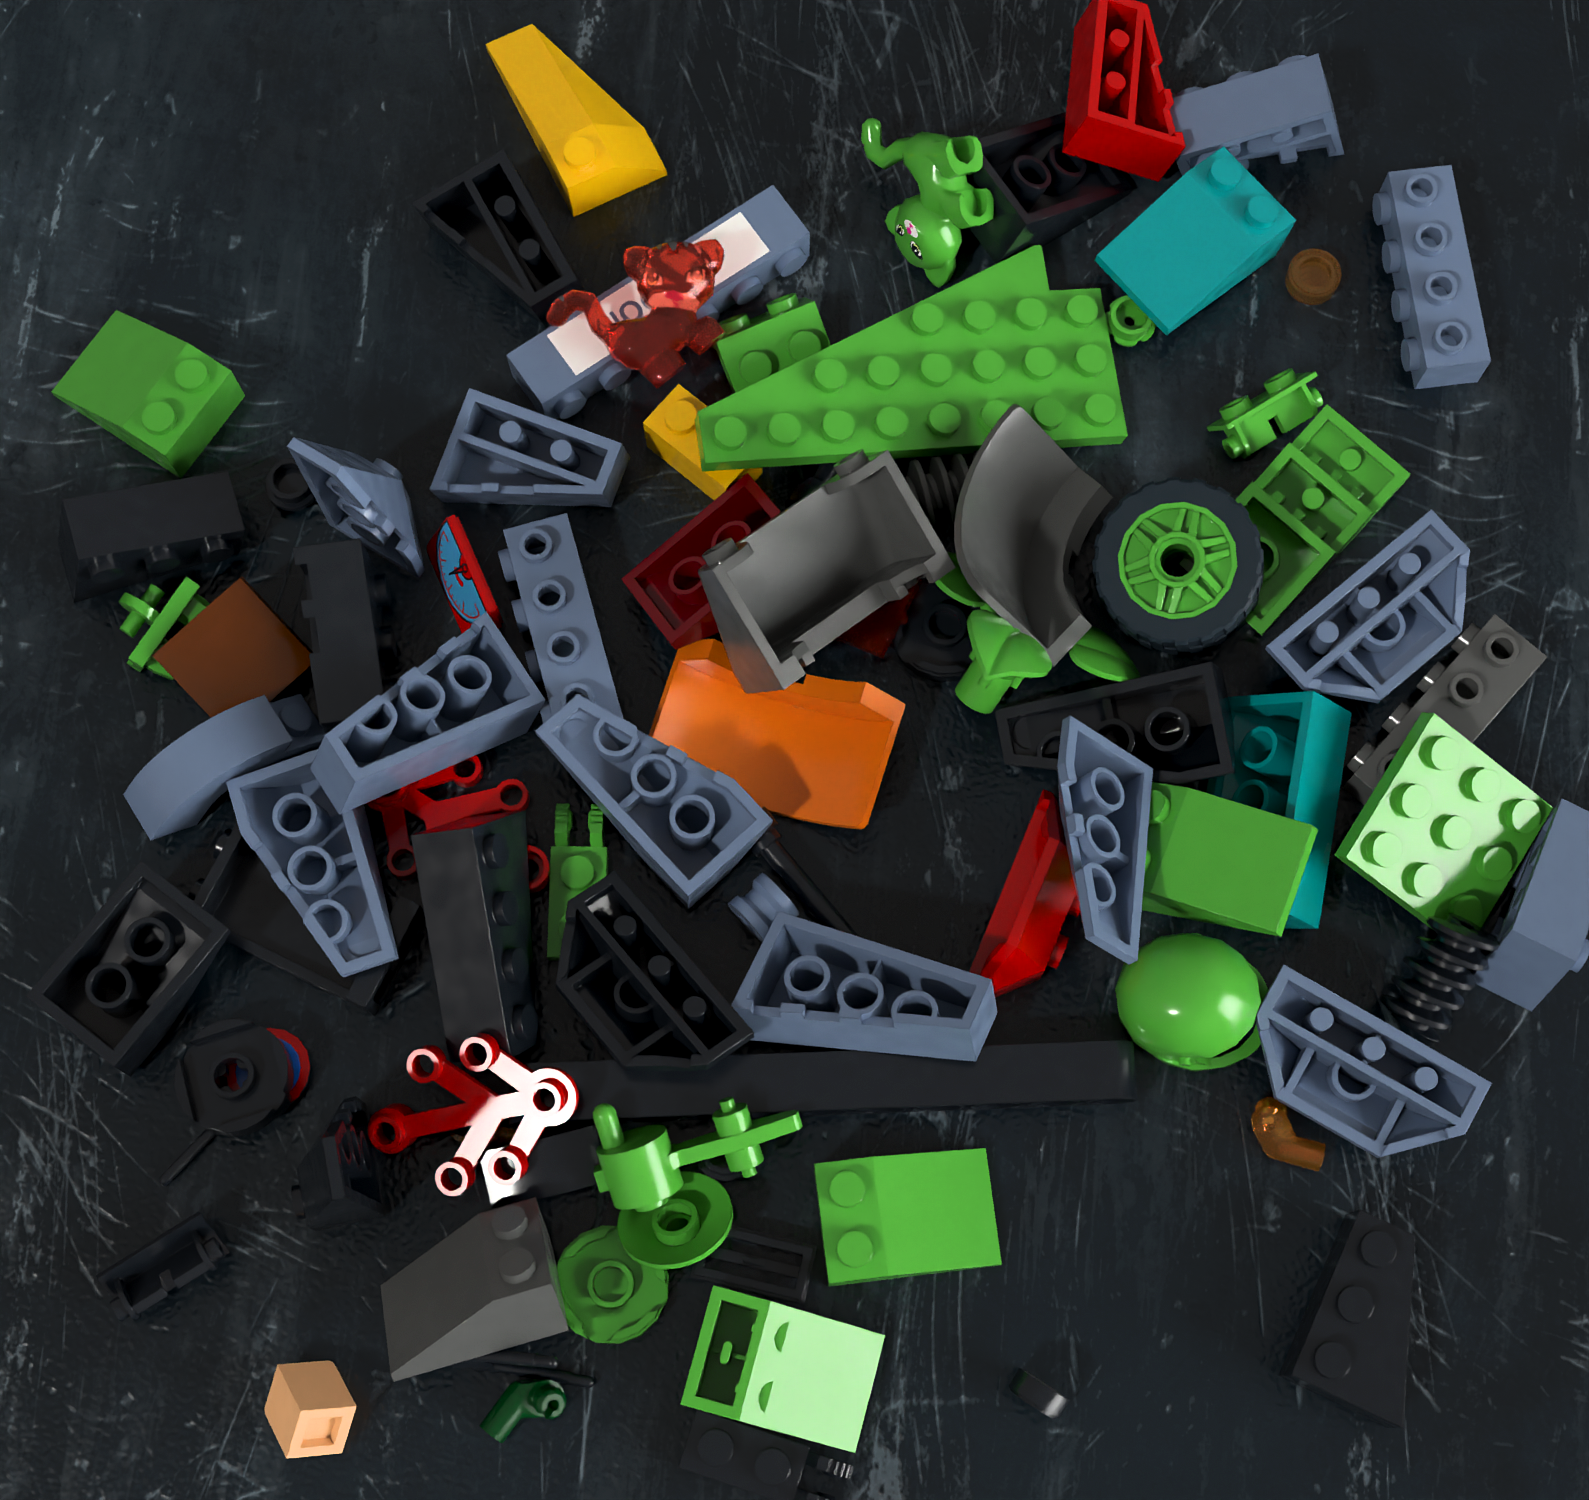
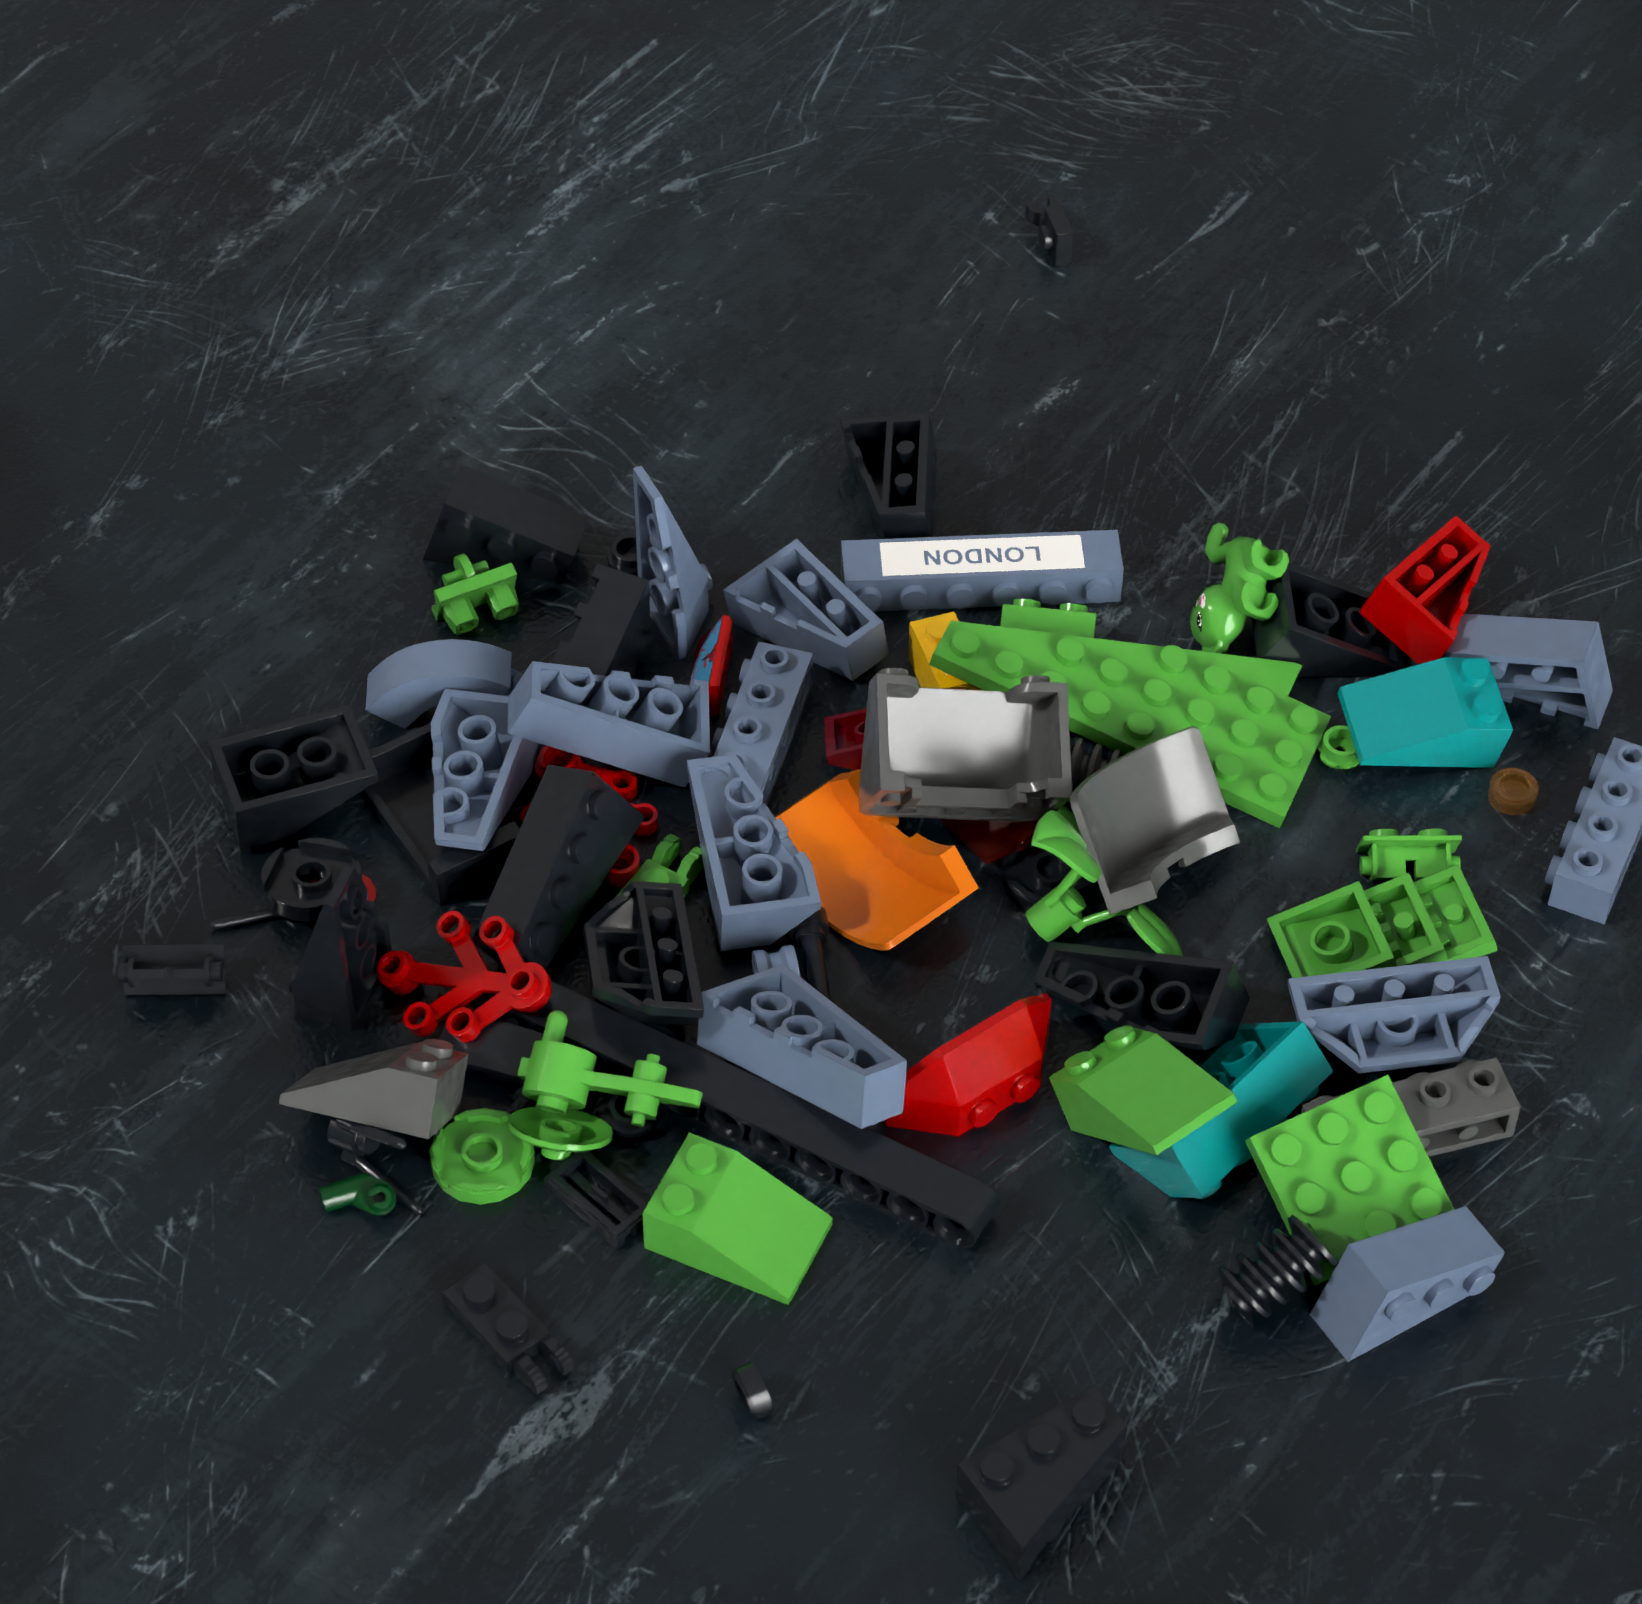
camera: 30 degrees right, 25 degrees down
(151, 391) = (575, 458): bright green slope -> none
(234, 651) = (512, 617): reddish brown slope -> none
(309, 1409) = (205, 1110): light nougat panel -> none
(578, 128) = (1001, 443): yellow wedge -> none
(674, 284) = (991, 545): clear red animal -> none
(783, 1369) = (565, 1261): slope -> none
(1105, 833) = (1064, 1012): sand blue wedge -> none
(1179, 522) = (1257, 899): wheel -> none
(1191, 1001) = (1057, 1174): bright green piece -> none
(1279, 1139) = (1070, 1332): clear orange arm -> none
(1360, 1071) = (1162, 1295): sand blue wedge -> none

